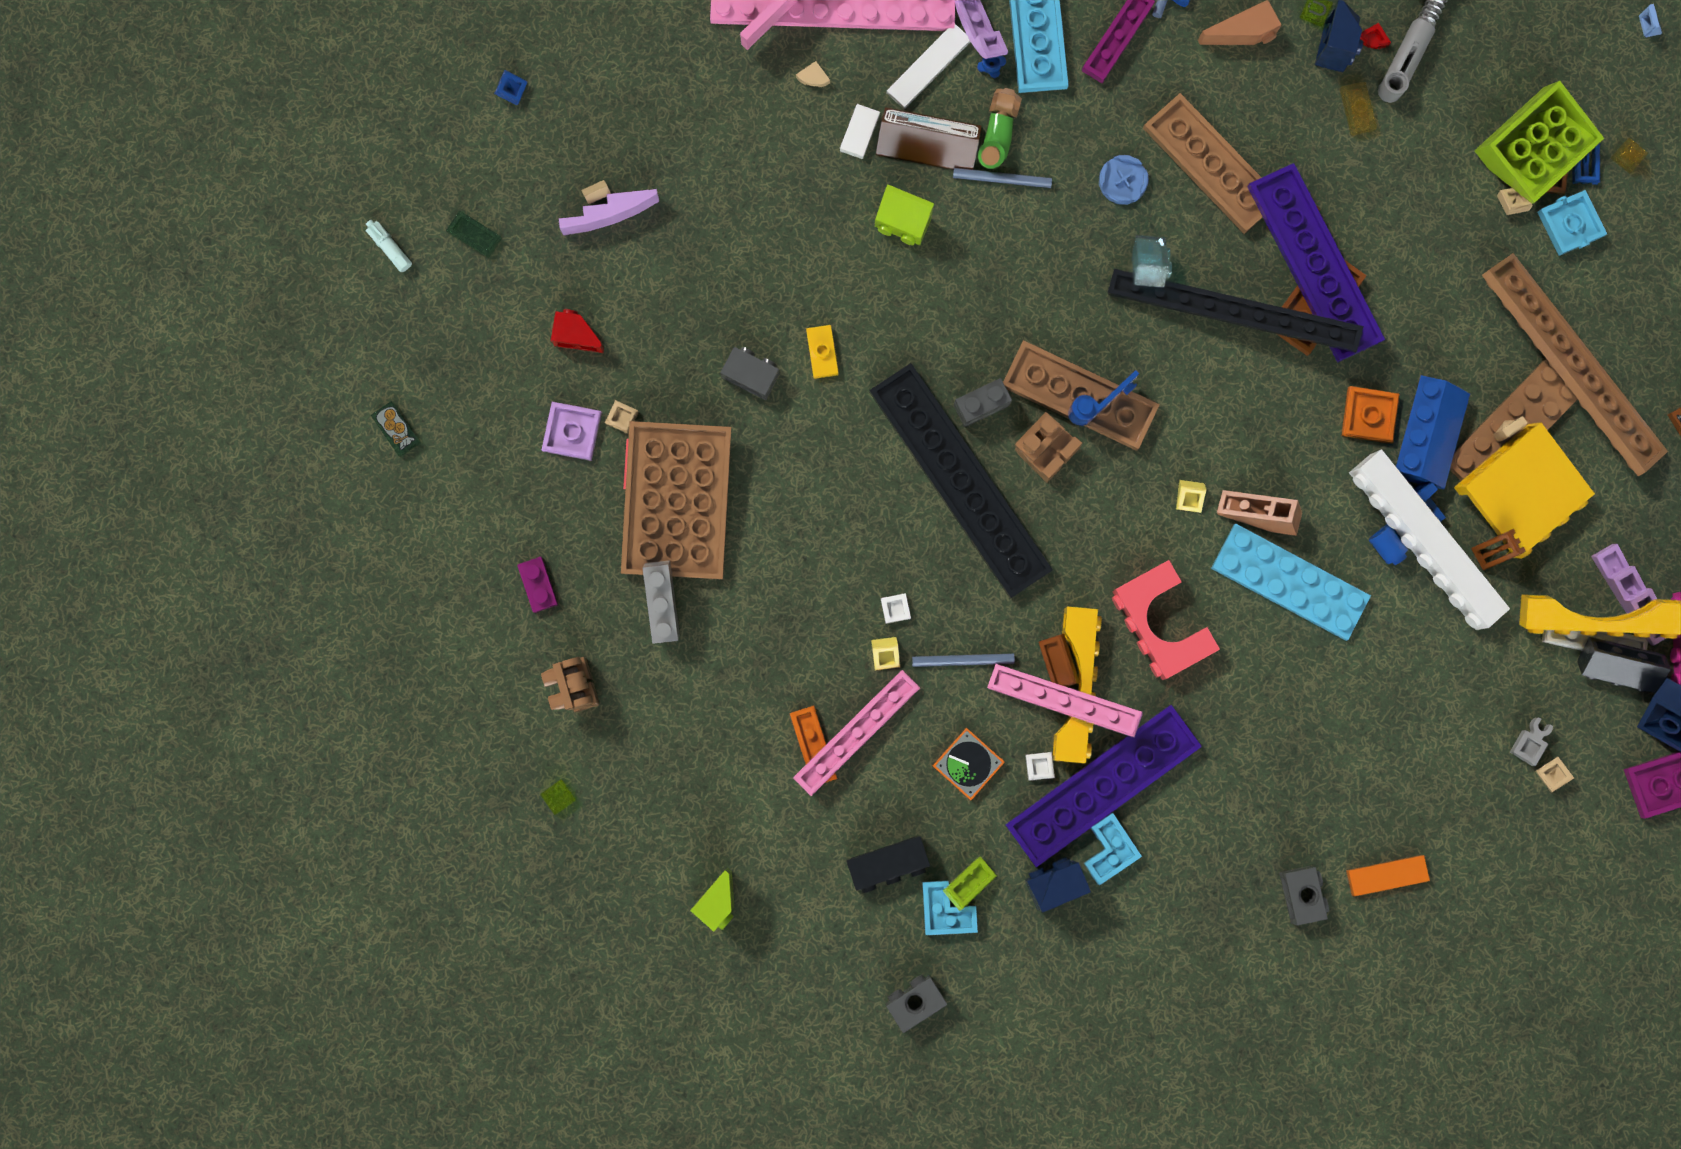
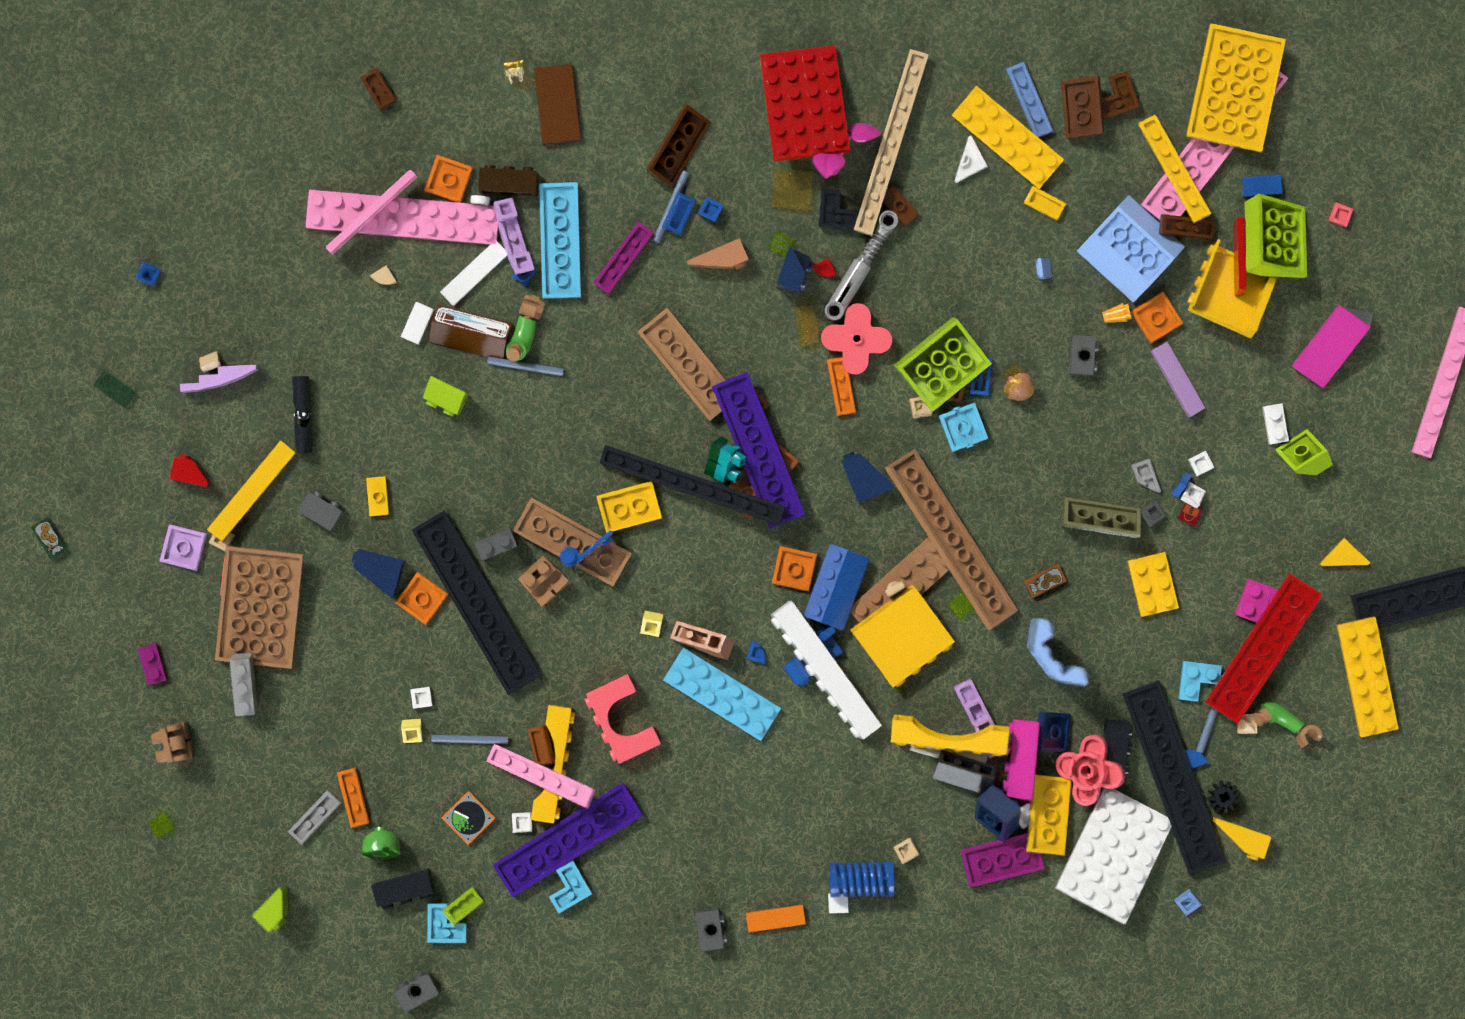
camera: 10 degrees right, 5 degrees up
(388, 245) = (47, 393): light aqua piece -> none
(657, 353) = (251, 491): none -> yellow tile
(717, 238) = (301, 401): none -> black piece
(763, 775) = (314, 817): none -> light grey tile
(830, 443) = (379, 569): none -> dark blue slope
(854, 805) = (380, 844): none -> bright green cylinder
(856, 733) = (385, 790): bright pink tile -> none
(887, 479) = (421, 598): none -> orange tile
(1057, 884) = (525, 912): dark blue slope -> none
(1123, 179) = (619, 373): medium blue tile -> none
(1150, 261) = (631, 442): clear light blue brick -> none
(1150, 346) = (629, 507): none -> yellow plate
(1271, 277) = (723, 460): none -> teal hips
(1330, 526) = (756, 653): none -> blue tile
(1409, 181) = (841, 387): none -> orange tile
(1425, 119) = (856, 354): none -> coral plant
(1452, 292) = (864, 477): none -> dark blue slope
(1469, 850) = (838, 905): none -> white tile
(1483, 812) = (851, 876): none -> blue piece
(1512, 542) = (883, 678): dark orange tile -> none
(1530, 745) = (889, 828): light grey plate -> none
(1590, 450) = (960, 605): none -> clear neon green tile
(1641, 167) = (1019, 387): none -> nougat hair

